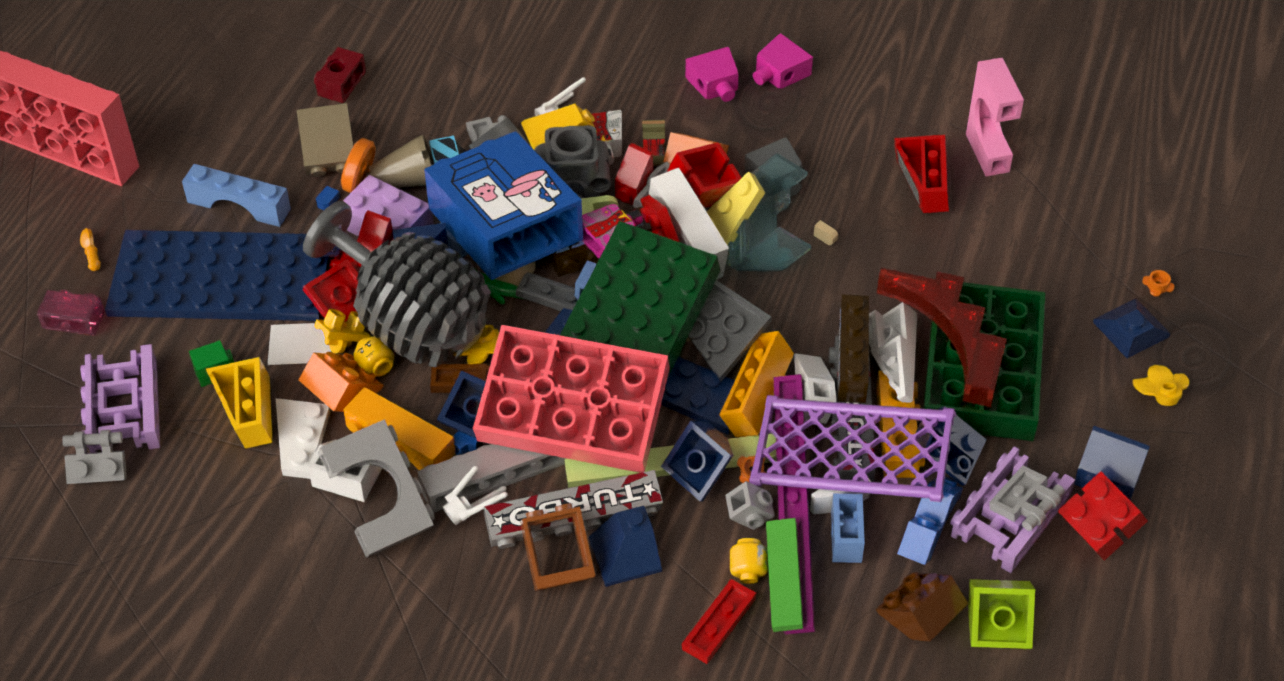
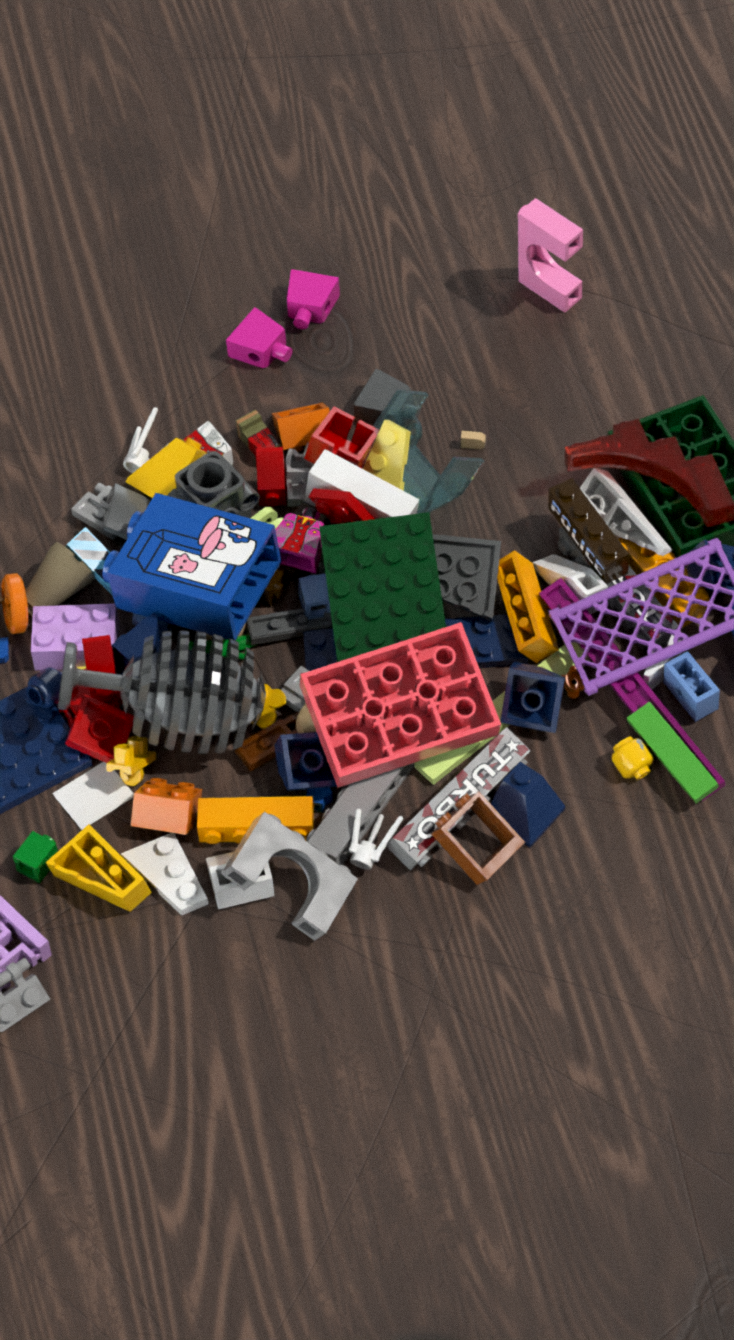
camera: 30 degrees left, 5 degrees up
(374, 356) = (177, 767): yellow head -> none
(718, 621) = (646, 821): red plate -> none
(750, 505) = (600, 712): light grey brick -> none
(925, 170) = (518, 335): red wedge -> none

